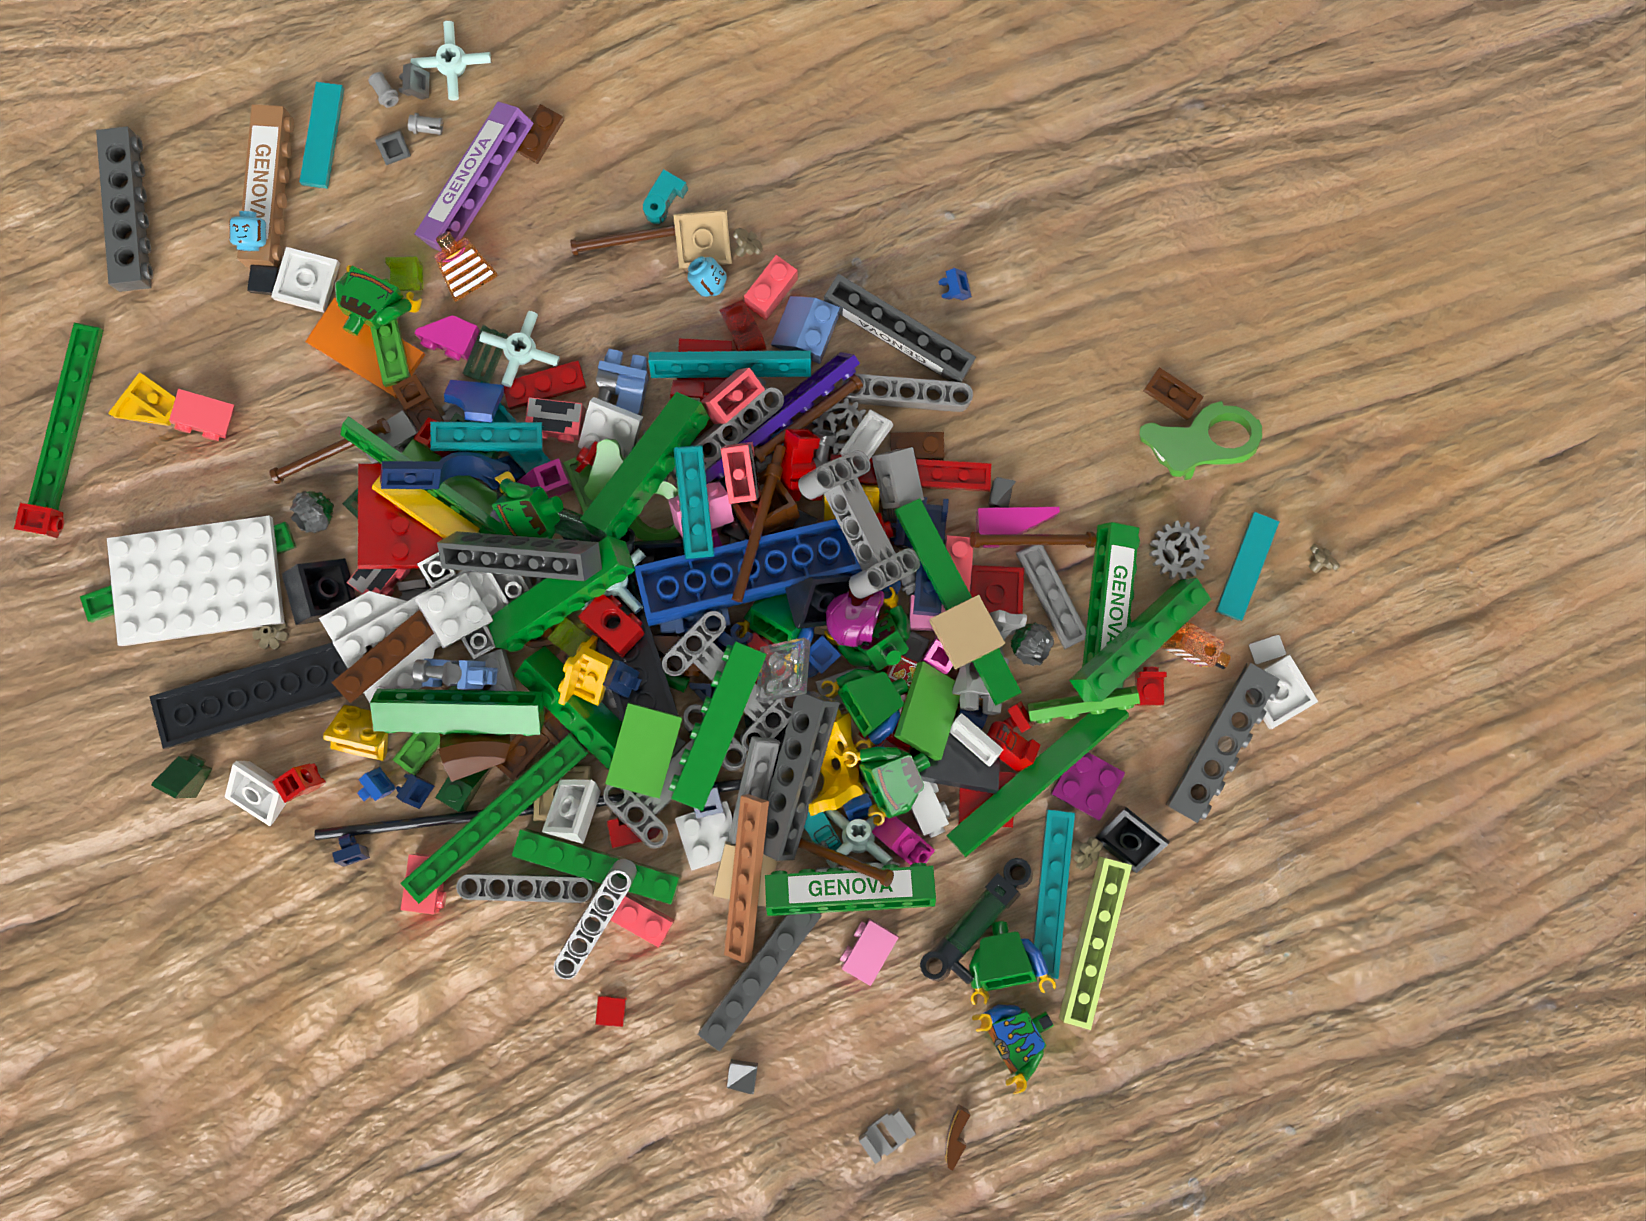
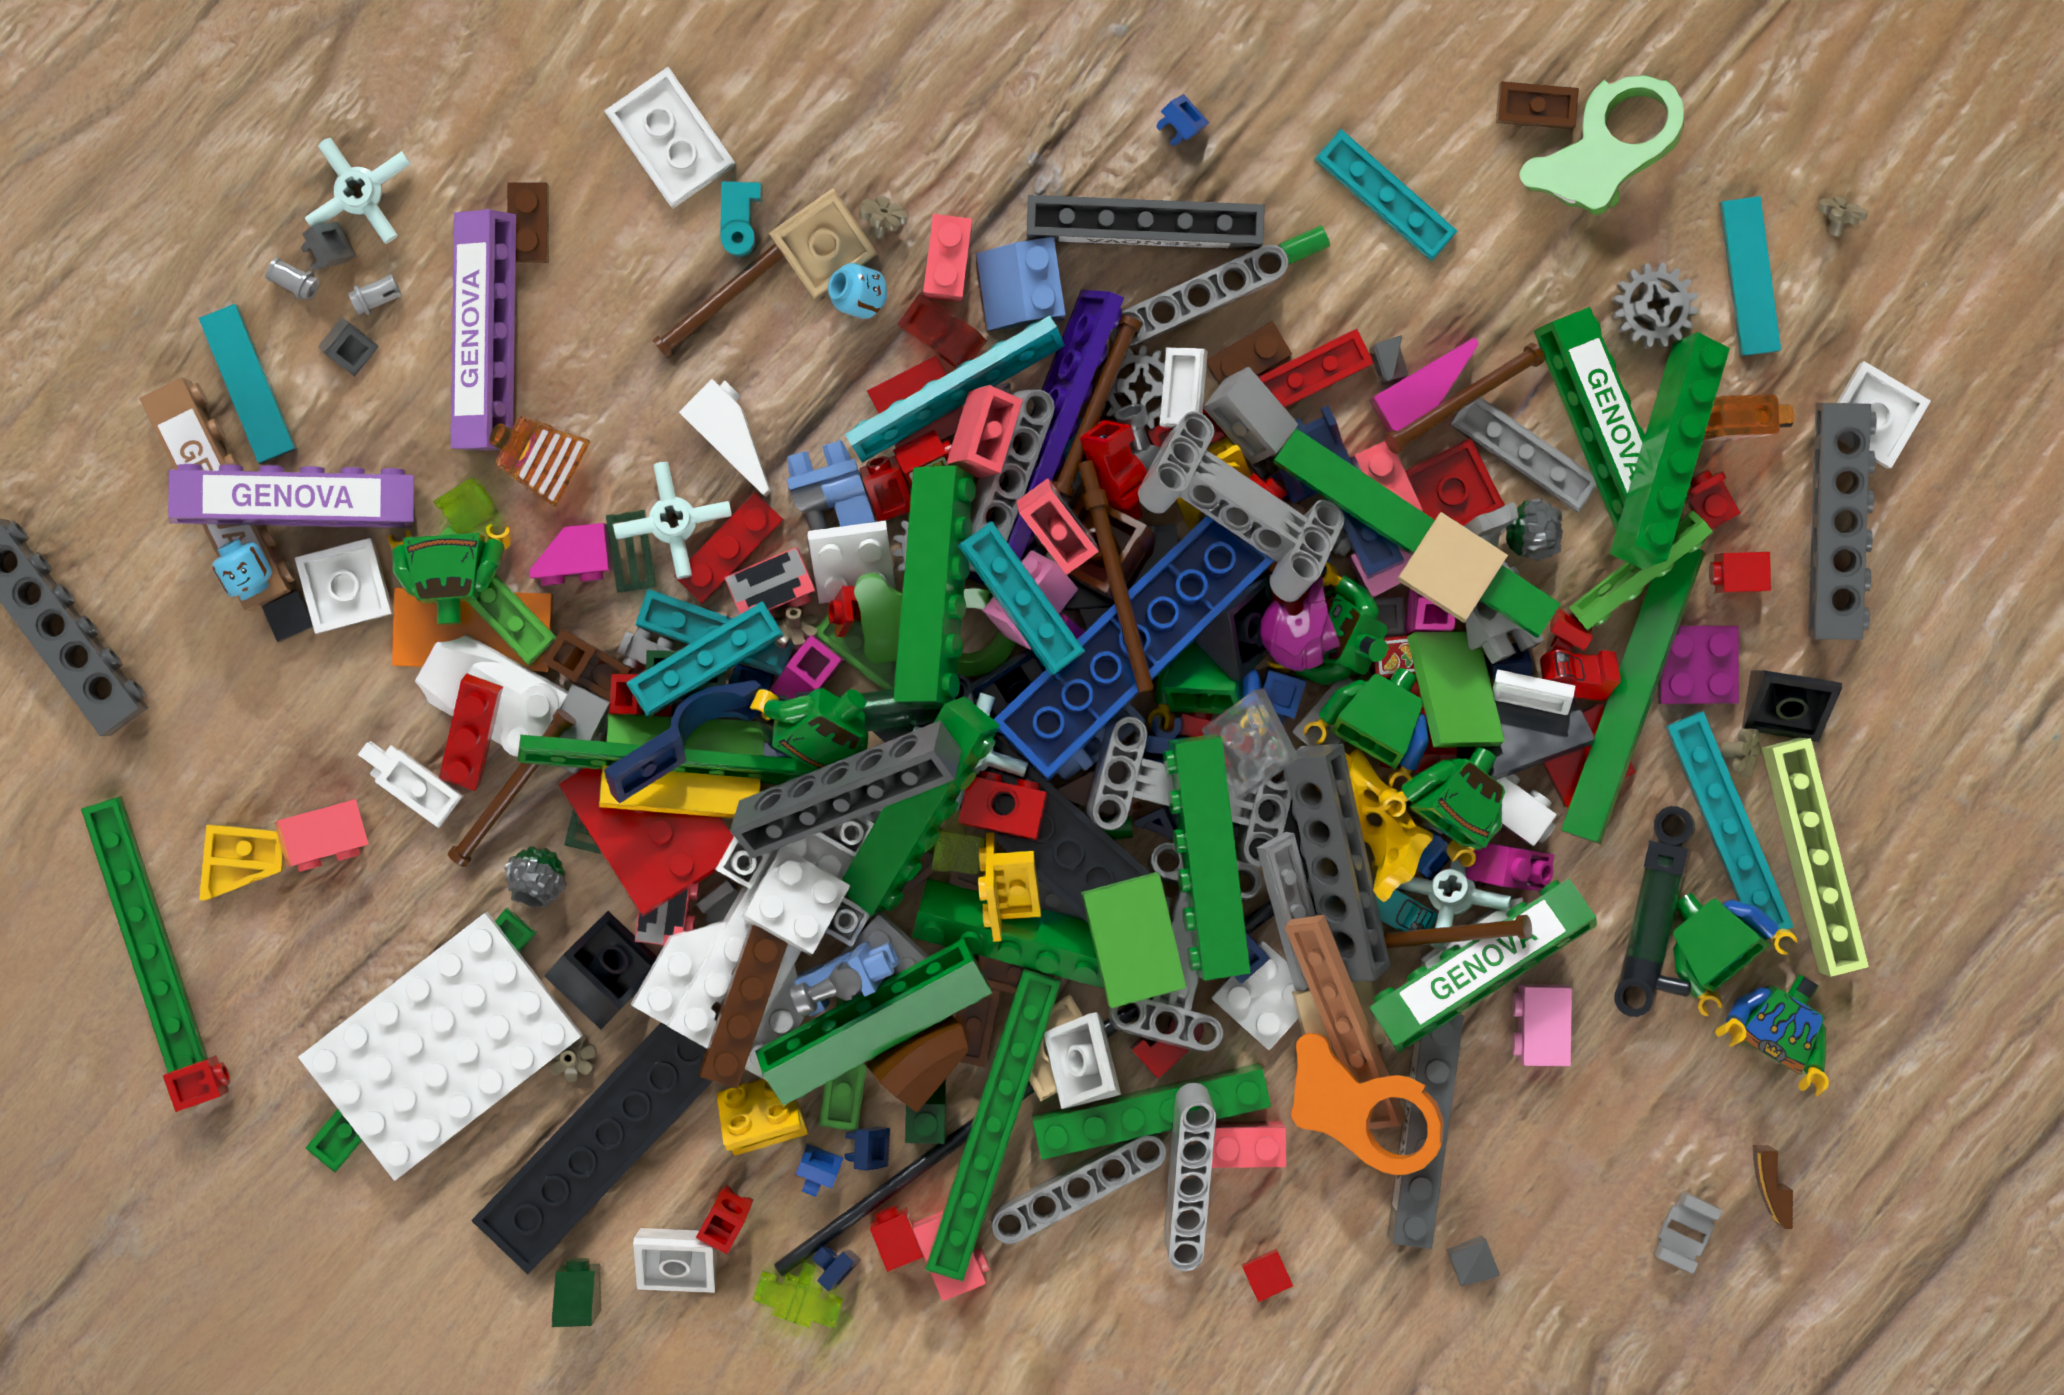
camera: 25 degrees left, 5 degrees up
(274, 416) = (411, 782): none -> white hinge
(301, 207) = (291, 497): none -> medium lavender brick
(316, 858) = (798, 1298): none -> clear neon green piece
(325, 403) = (470, 732): none -> red plate
(350, 384) = (526, 696): none -> white slope
(395, 854) = (895, 1237): none -> red brick
(476, 399) = (658, 617): blue tile -> none
(553, 449) = (795, 627): none -> dark tan plant
(583, 312) = (725, 426): none -> white slope
(622, 678) = (1057, 867): dark blue tile -> none
(650, 131) = (670, 137): none -> white tile
(655, 398) = (886, 487): none -> red bracket
(713, 929) = (1337, 1104): none -> orange animal
(988, 398) = (1305, 244): none -> green piece
(1053, 397) = (1385, 195): none -> teal tile
(1144, 740) = (1741, 572): none -> red brick
(1267, 649) = (1831, 368): white sticker -> none

